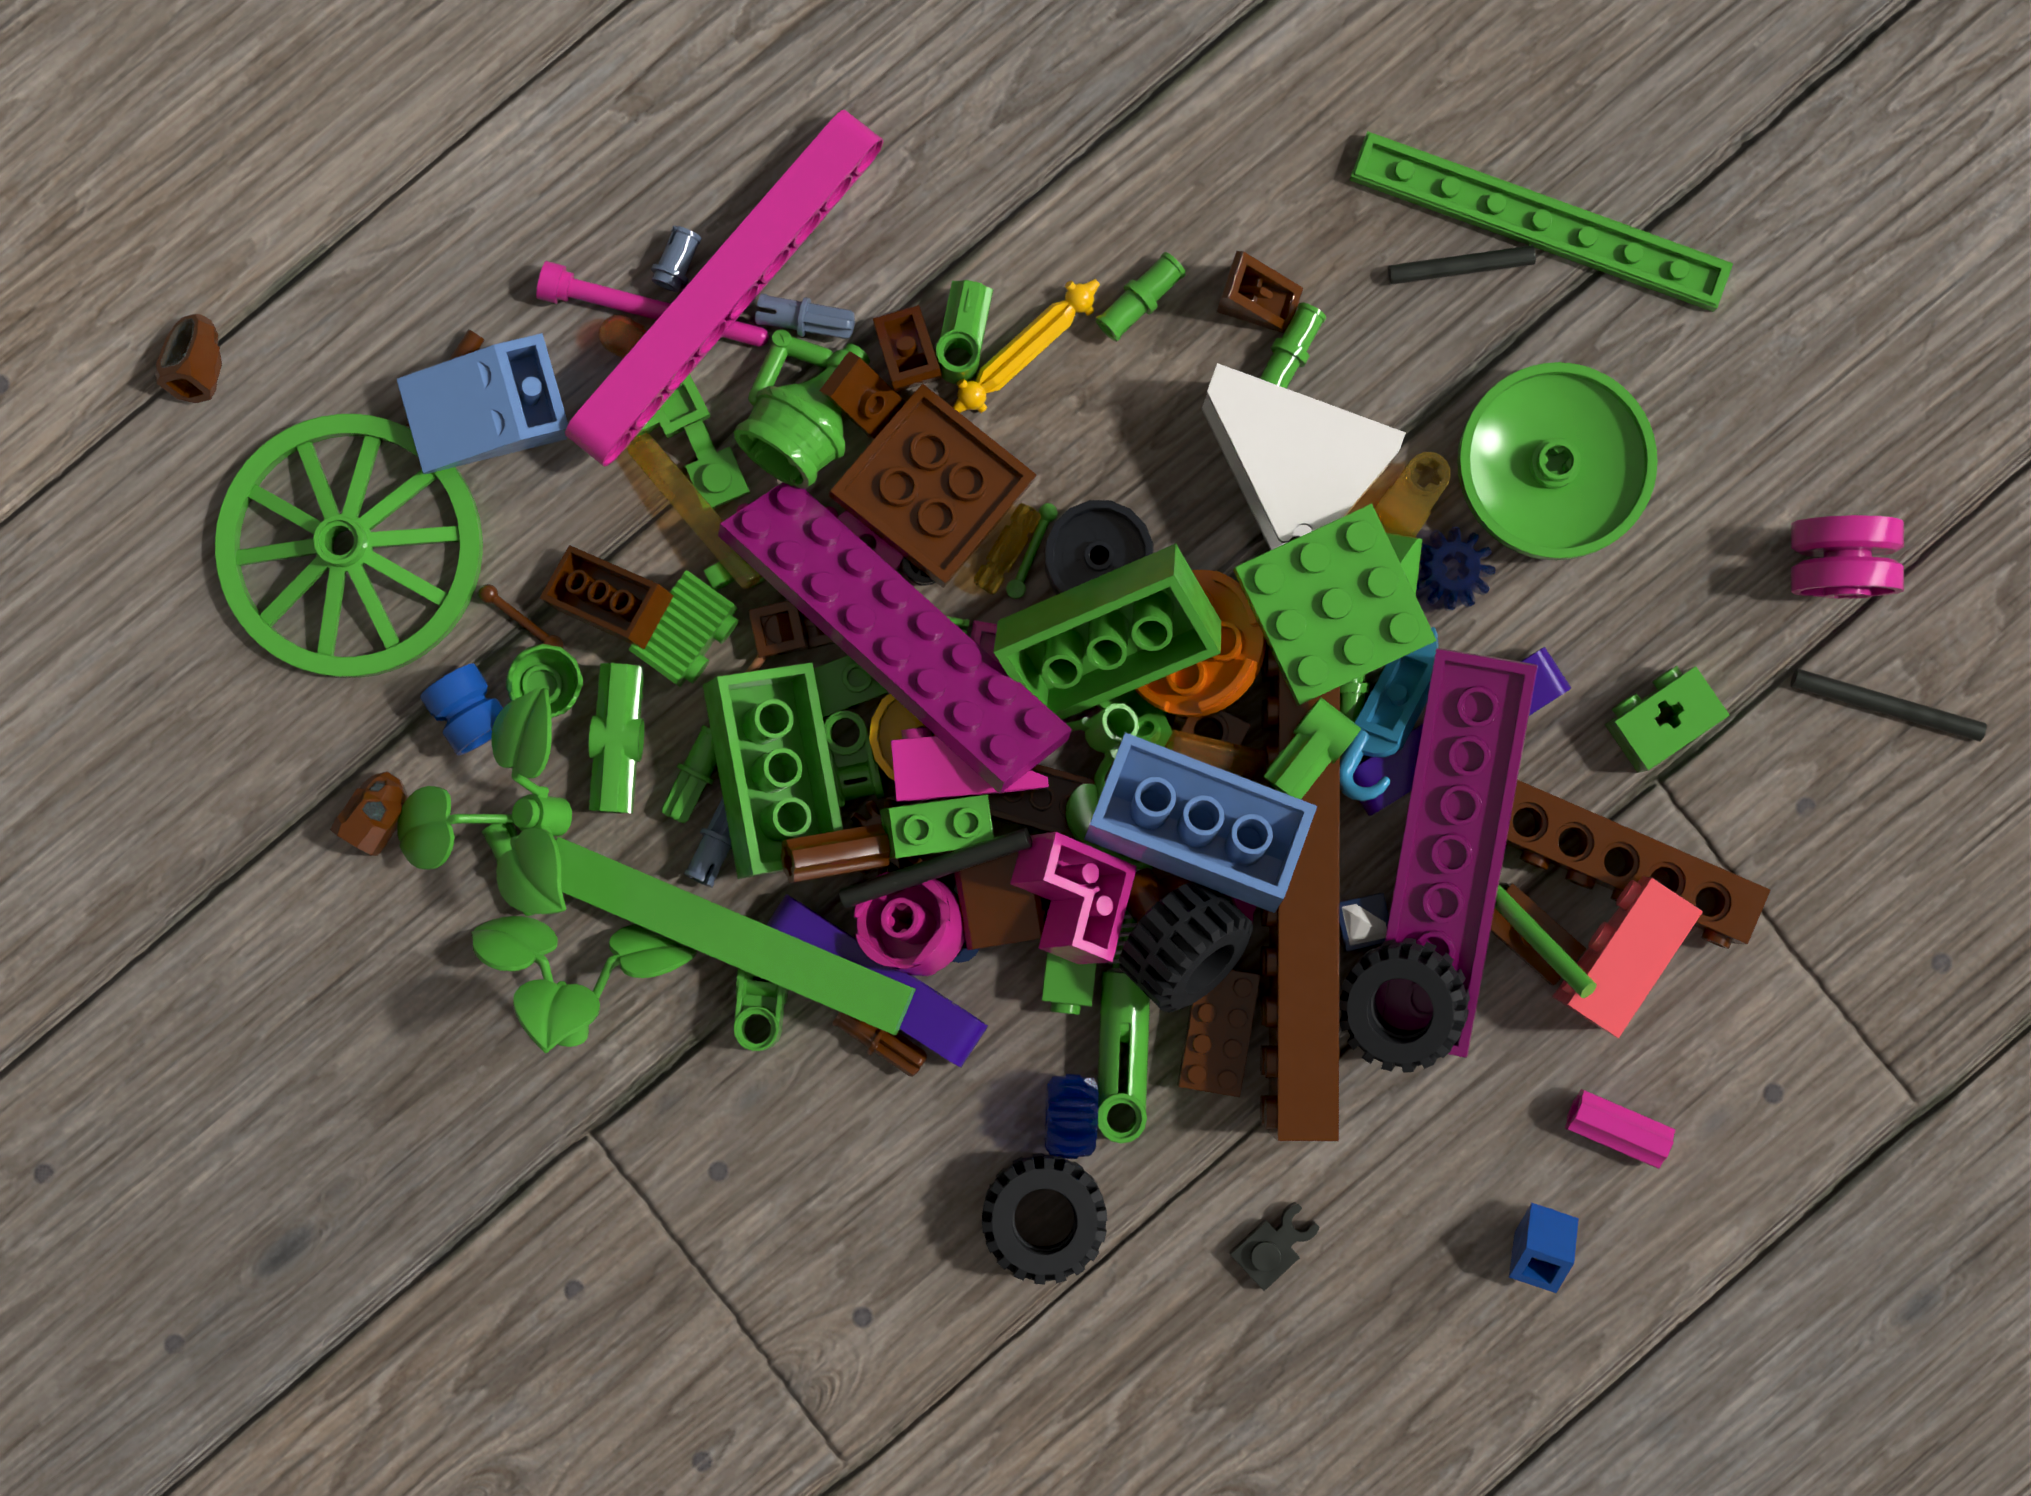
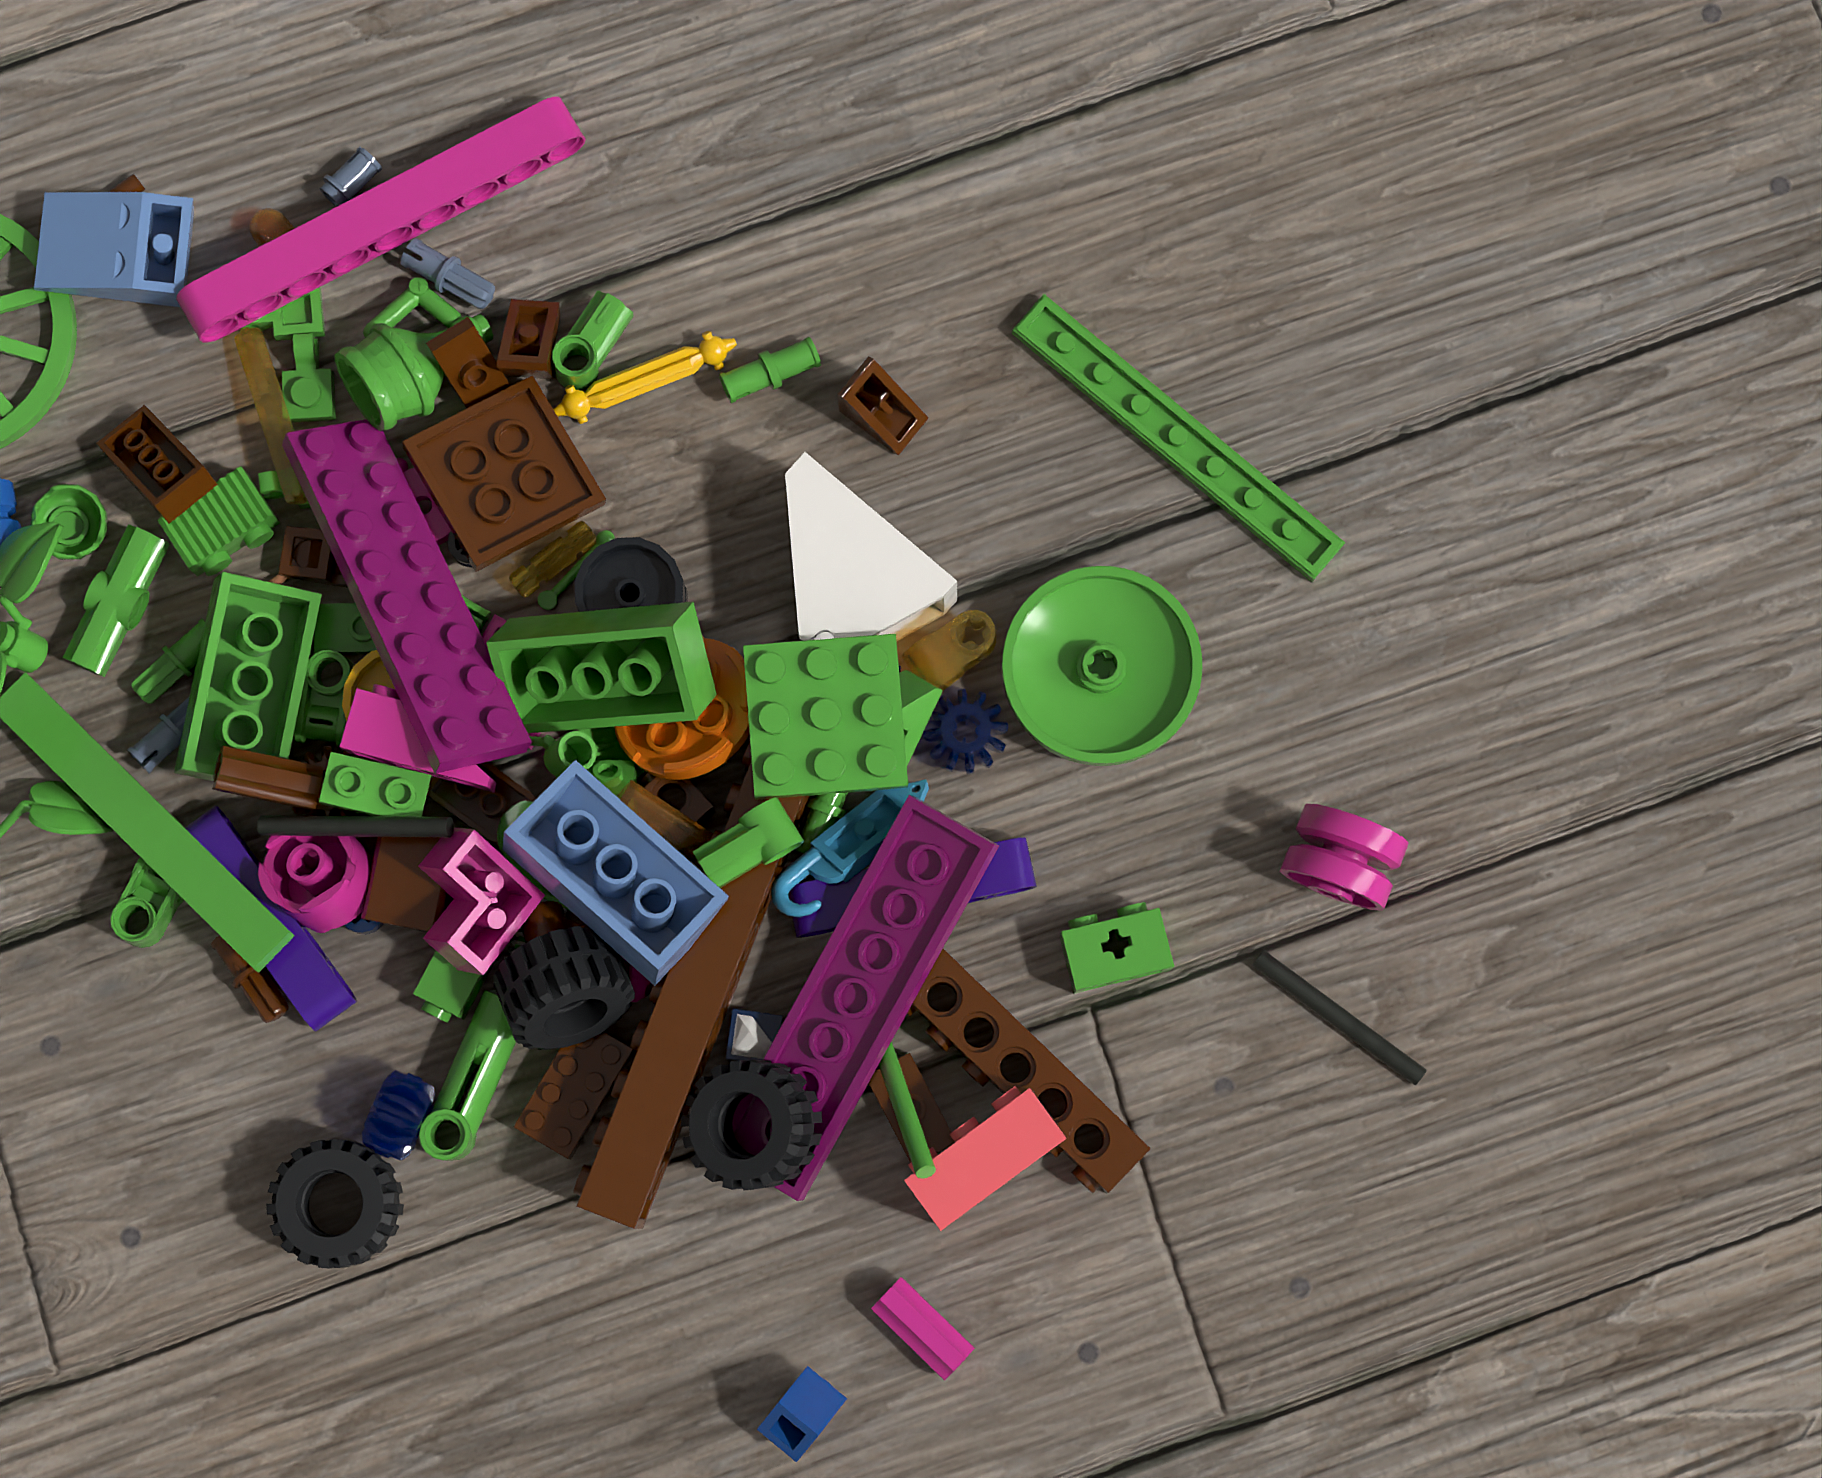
camera: 25 degrees right, 5 degrees down
(489, 594) = (53, 423): reddish brown hinge -> none
(559, 284) = (232, 162): dark pink piece -> none
(1268, 1251) = (541, 1319): pearl dark grey plate -> none
(1292, 348) = (894, 469): bright green pin -> none
(1461, 264) = (1086, 450): pearl dark grey bar -> none

